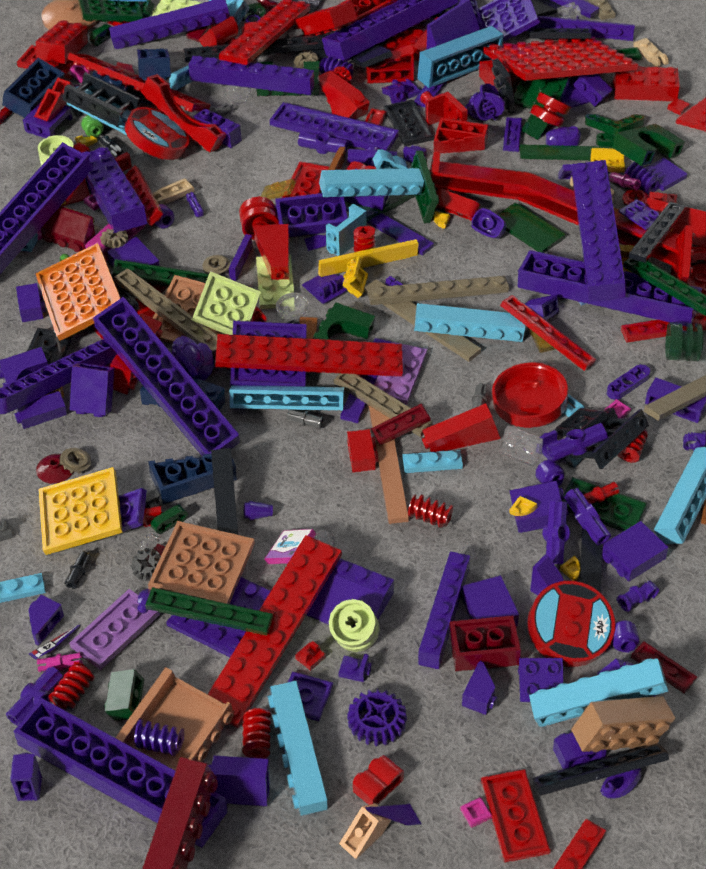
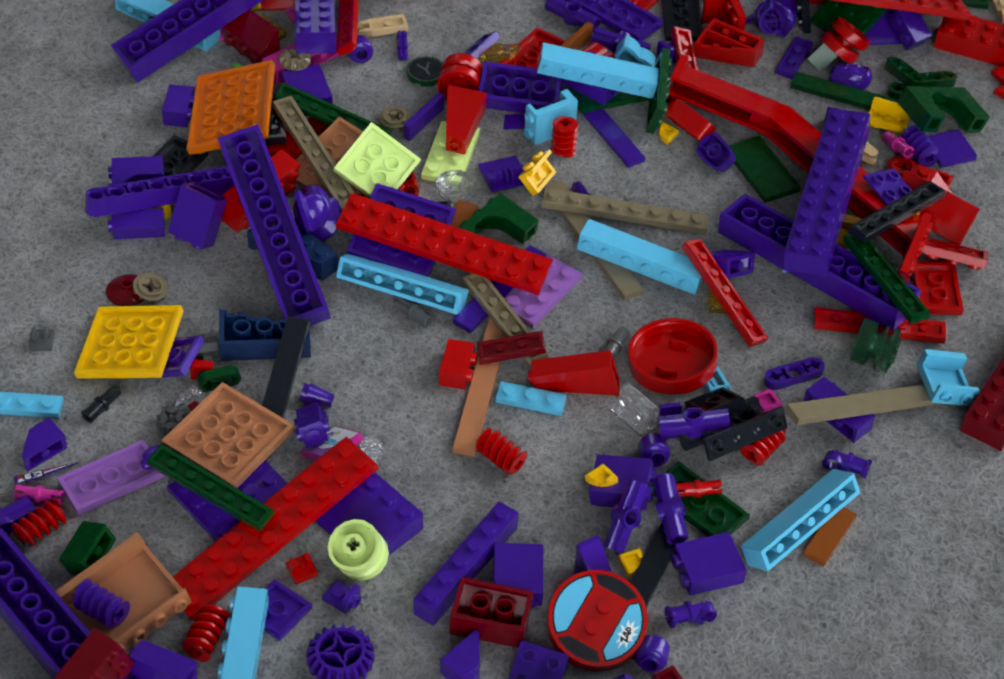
camera: 15 degrees right, 0 degrees up
(223, 220) = (424, 70): none -> black tile
(261, 186) = (482, 44): none -> tile
(268, 534) = (312, 425): none -> dark purple brick
(369, 257) = (564, 154): yellow tile -> none
(423, 144) = (684, 45): none -> red tile

